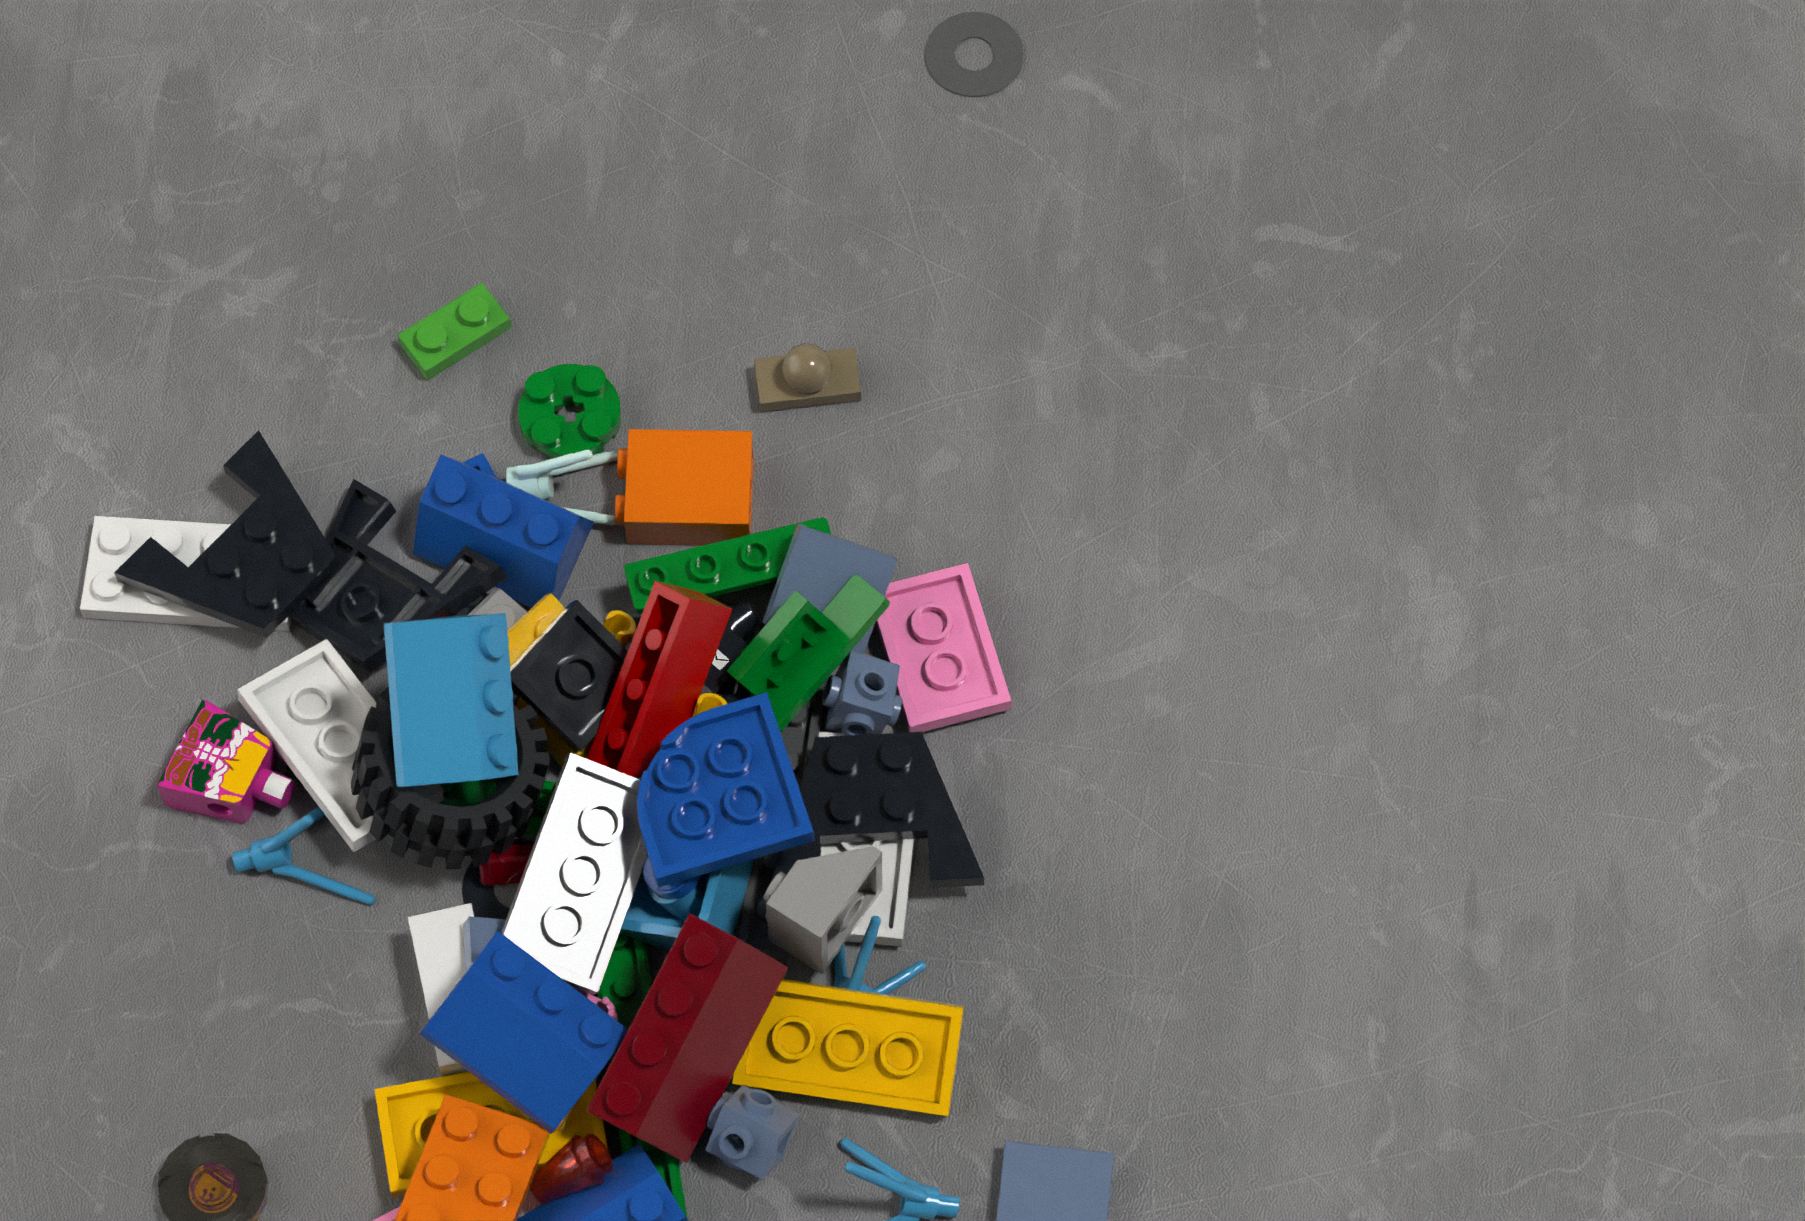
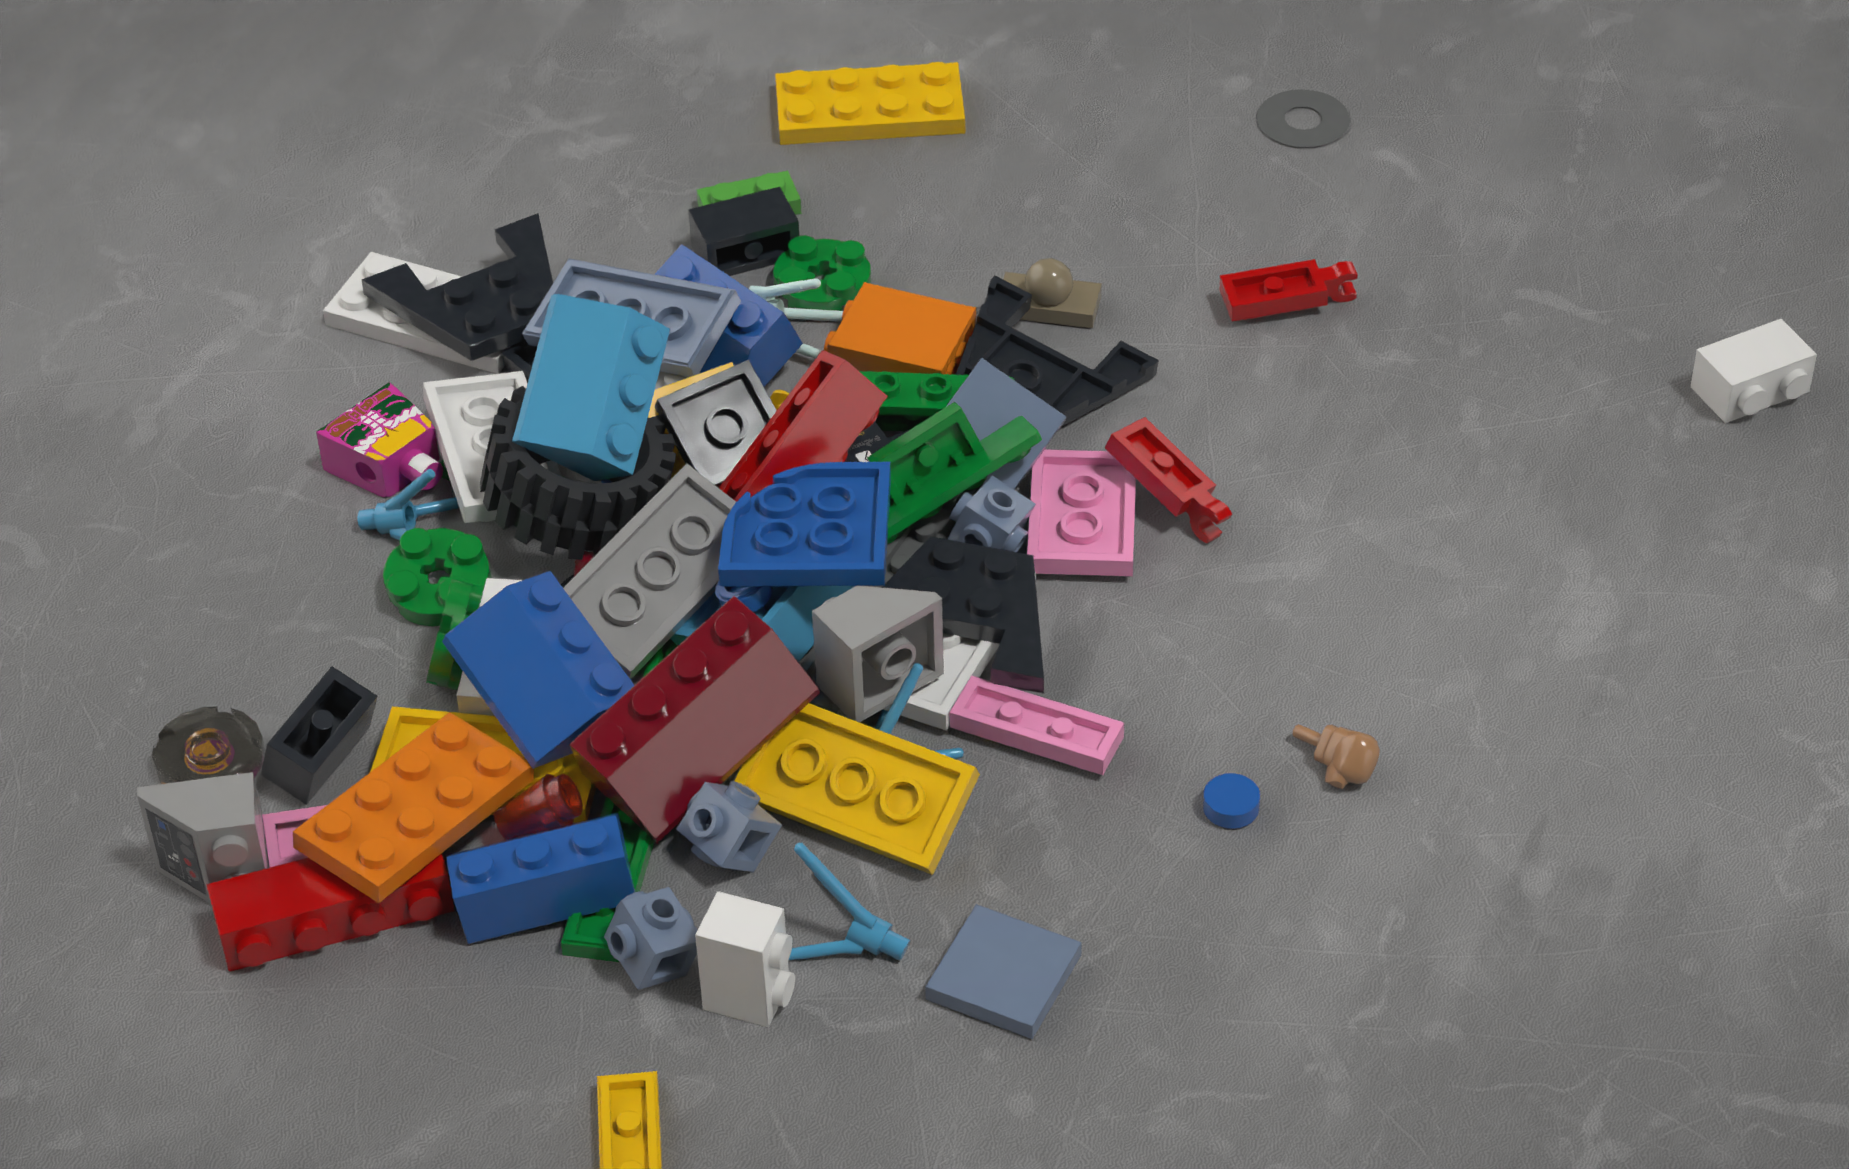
camera: 20 degrees right, 20 degrees down
(323, 1149) = (318, 735): none -> black brick
(363, 888) = (423, 553): none -> green plate
(404, 997) = (460, 603): none -> green plate
(423, 558) = (690, 309): none -> sand blue tile
(471, 383) = (743, 231): none -> black brick
(526, 159) = (869, 103): none -> yellow plate
(811, 483) = (1042, 370): none -> black wing
(986, 919) = (1037, 725): none -> bright pink plate
(1012, 588) = (1169, 476): none -> red plate
(1036, 304) = (1286, 288): none -> red plate
(1191, 948) = (1231, 800): none -> blue tile
(1280, 865) = (1346, 752): none -> medium nougat piece
(1517, 286) = (1753, 370): none -> white brick

